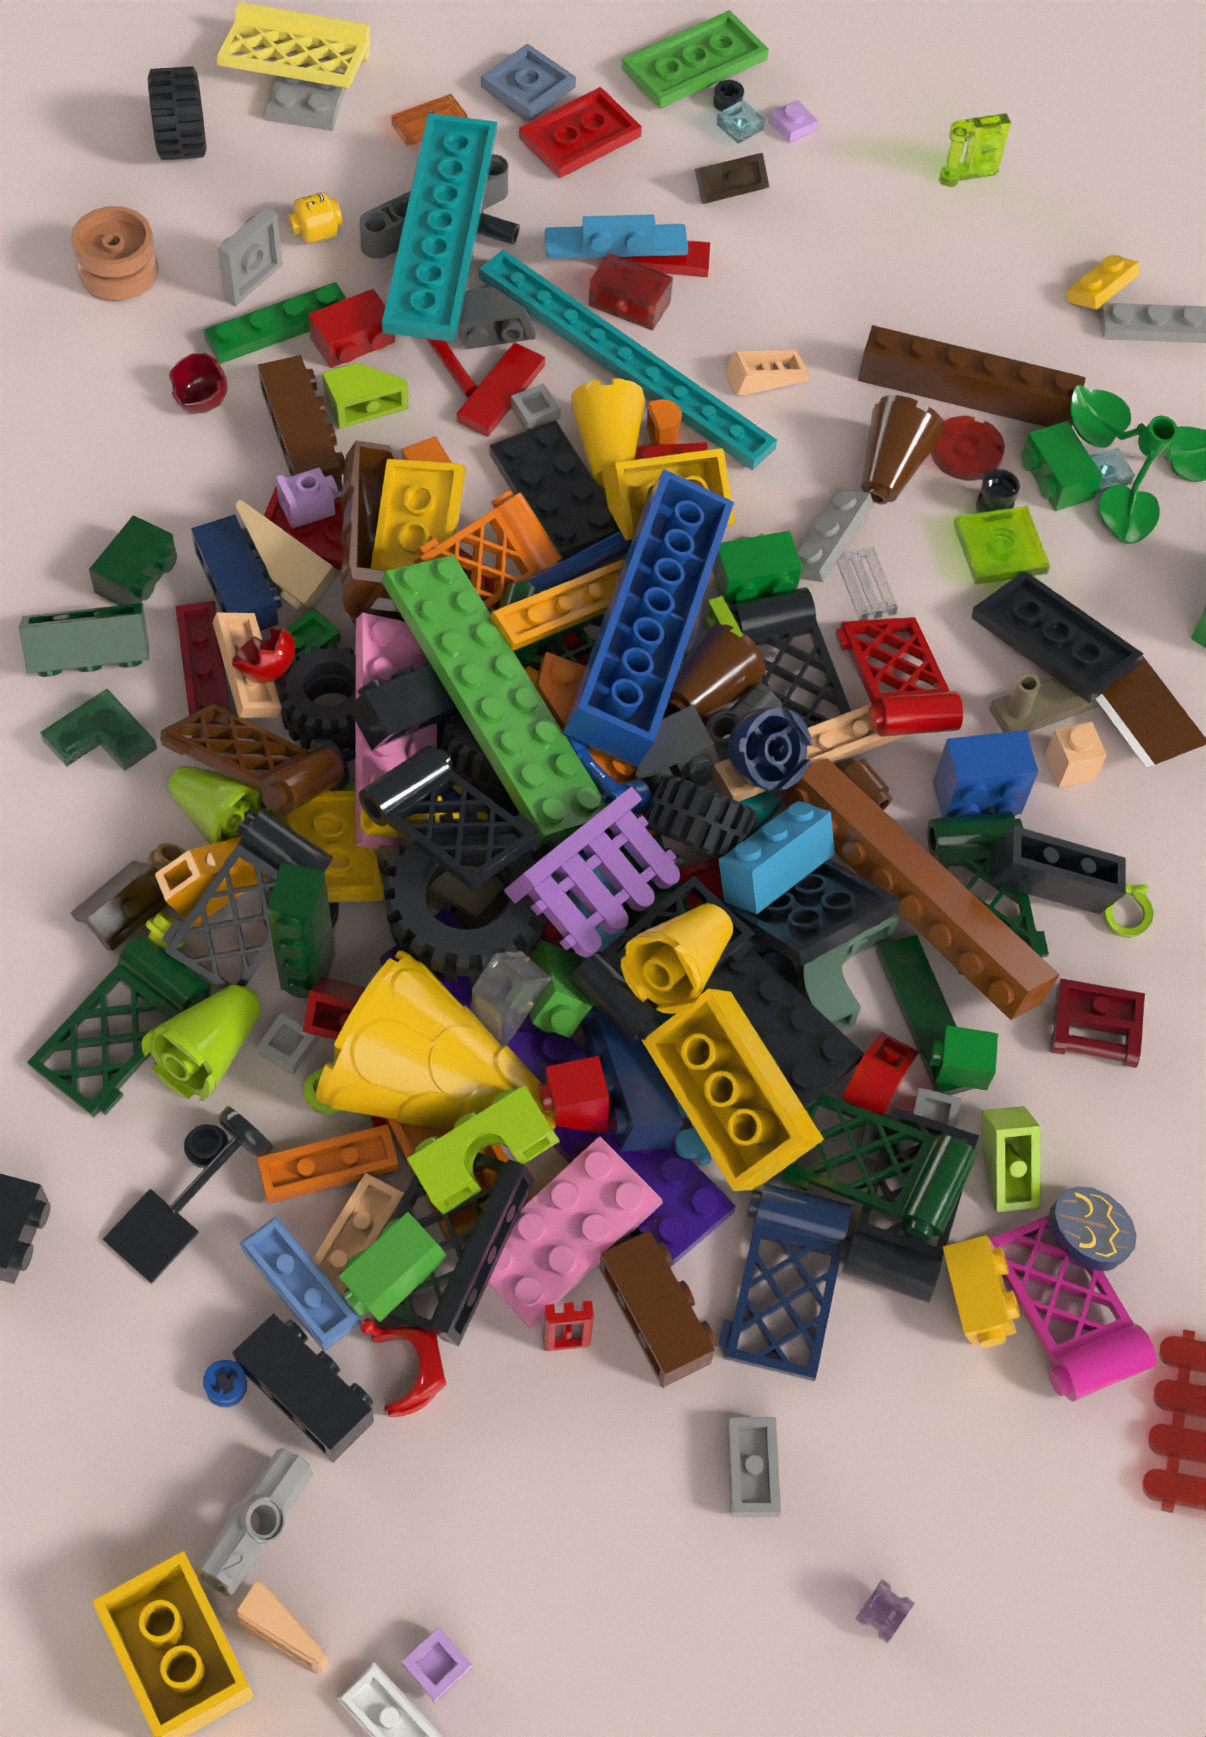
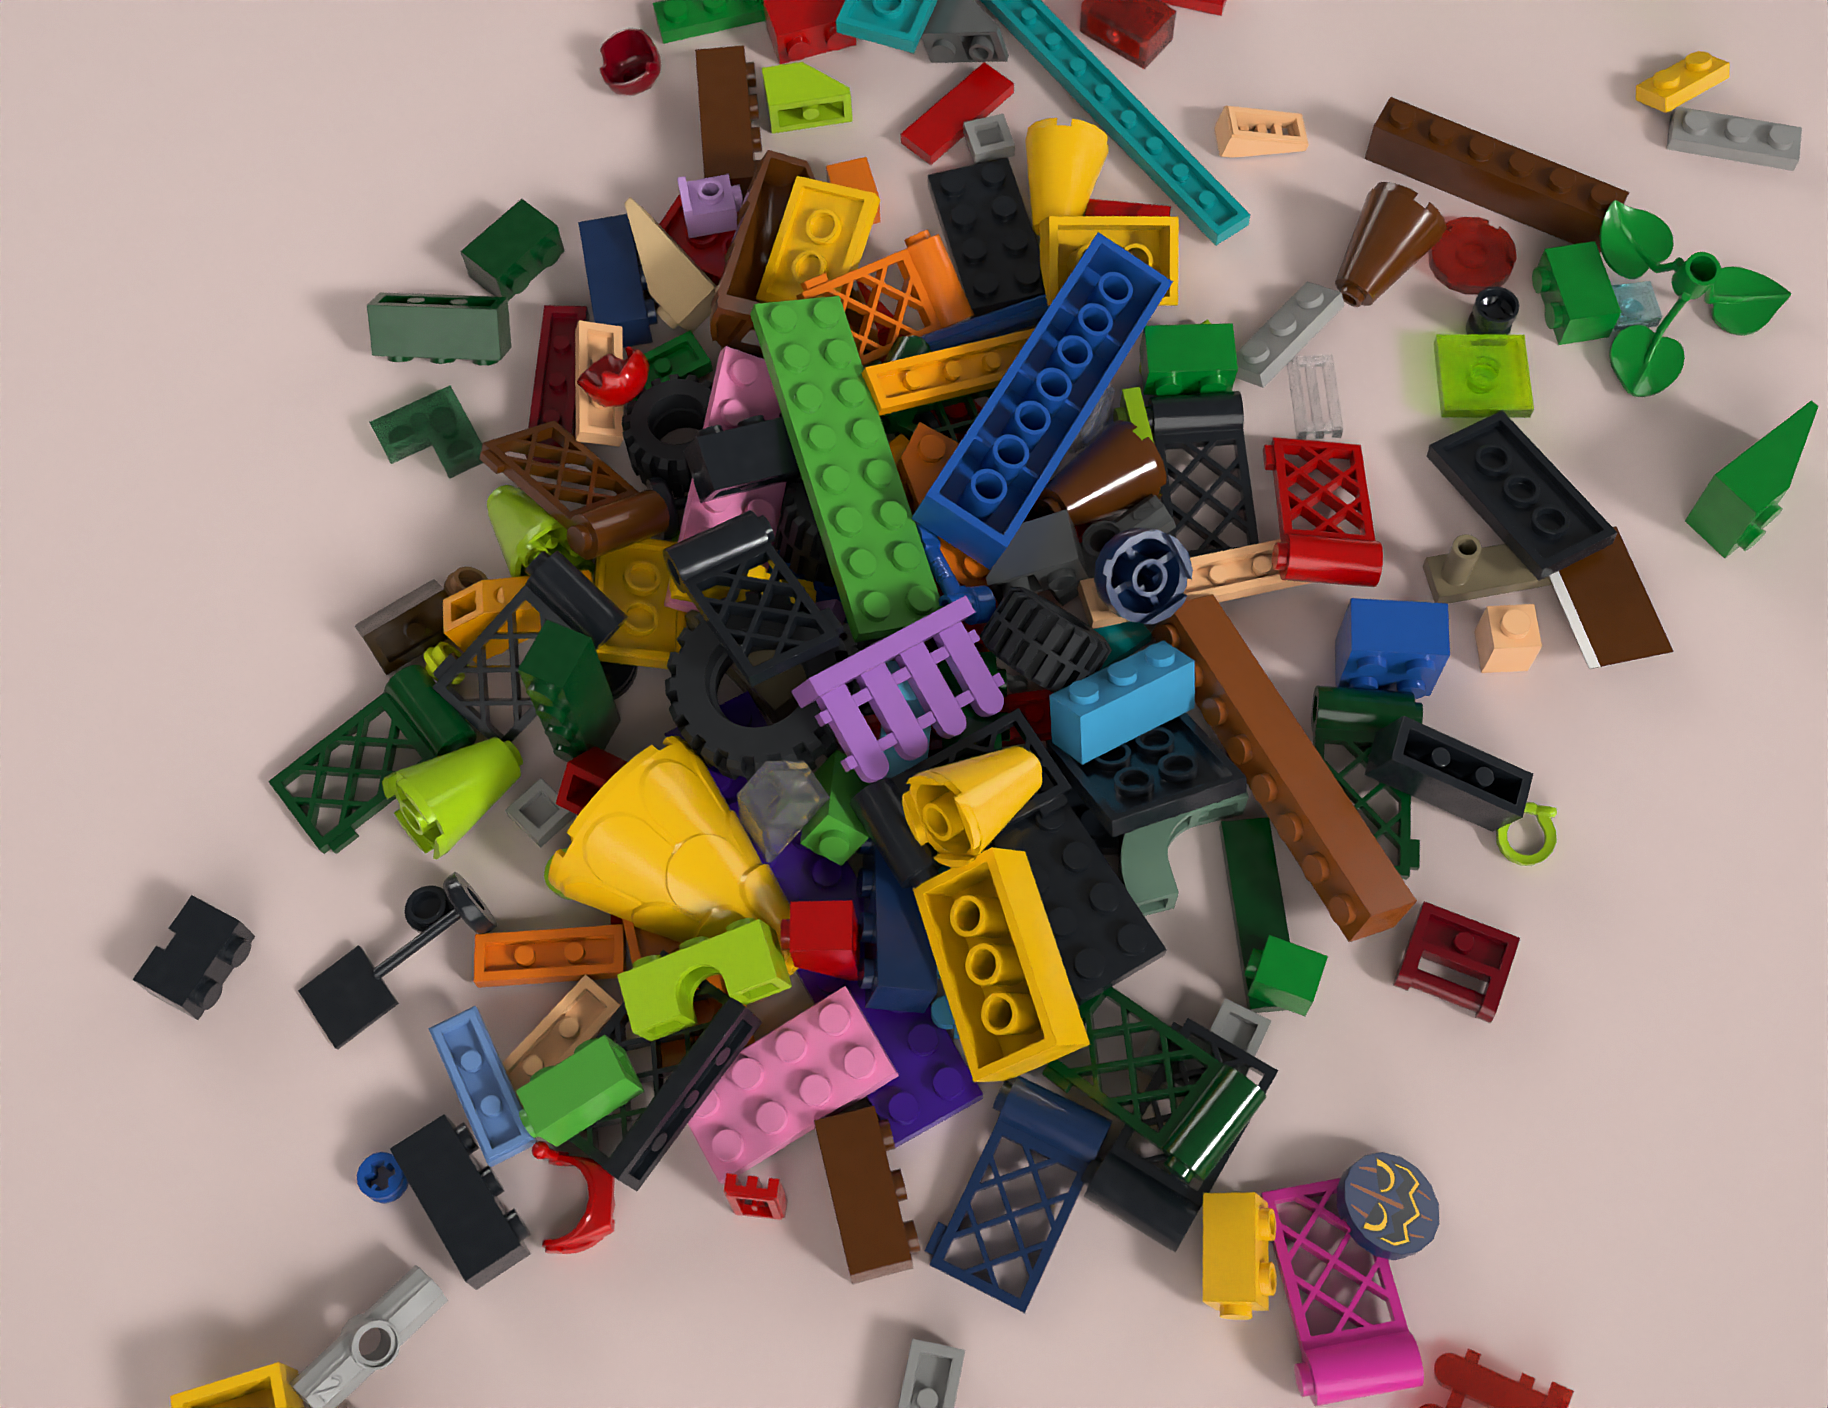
camera: 20 degrees right, 5 degrees up
(453, 366) = (912, 81): red bar -> none
(663, 422) = (1127, 176): orange brick -> none
(868, 781) = (1254, 630): reddish brown brick -> none
(880, 1074) = (1184, 974): red slope -> none
(1012, 1157) = (1313, 1102): lime slope -> none

